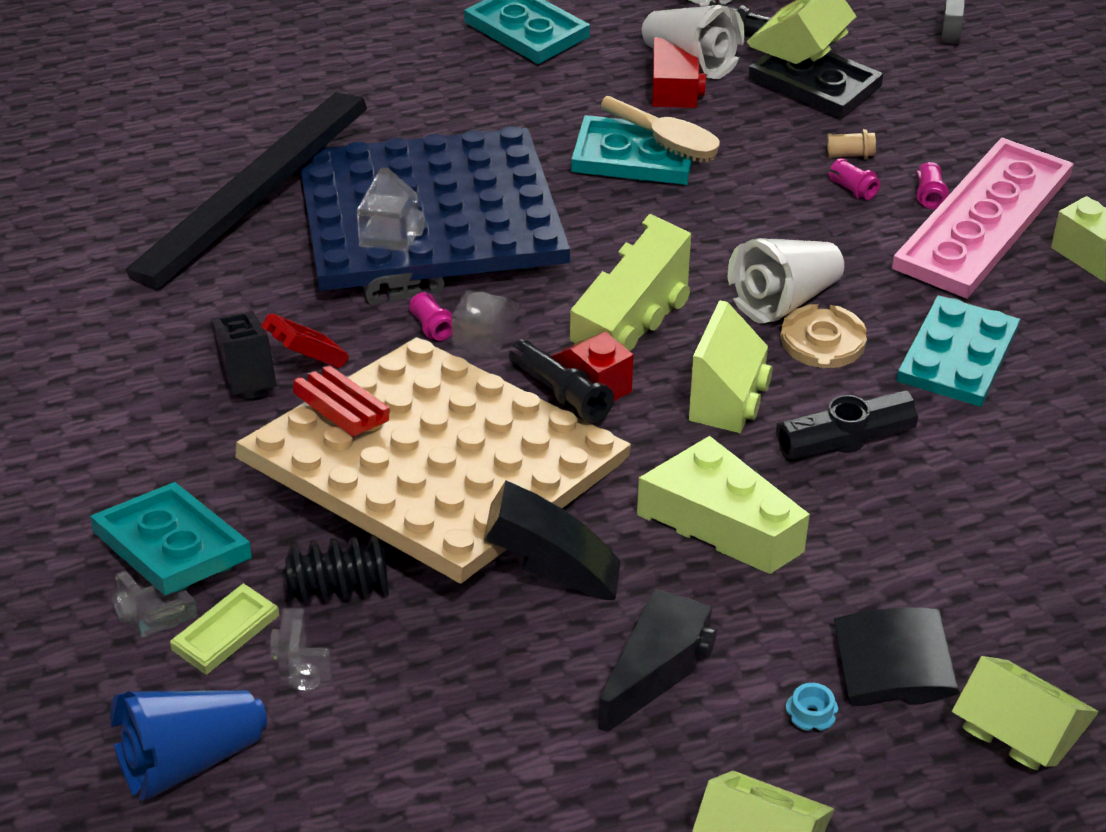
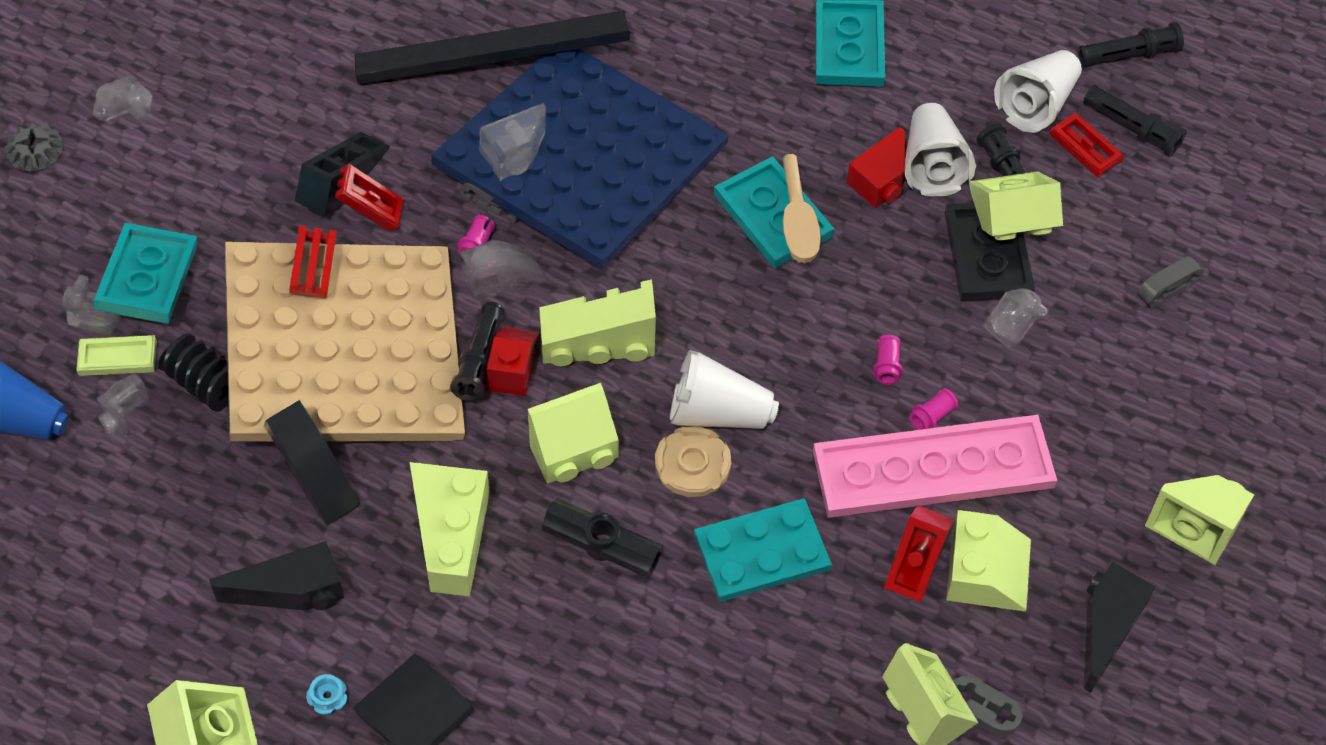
camera: 45 degrees right, 15 degrees up
(851, 145) = (929, 331): tan pin -> none
(897, 97) = (1014, 316): none -> clear bracket
(1063, 264) = (918, 553): none -> red slope

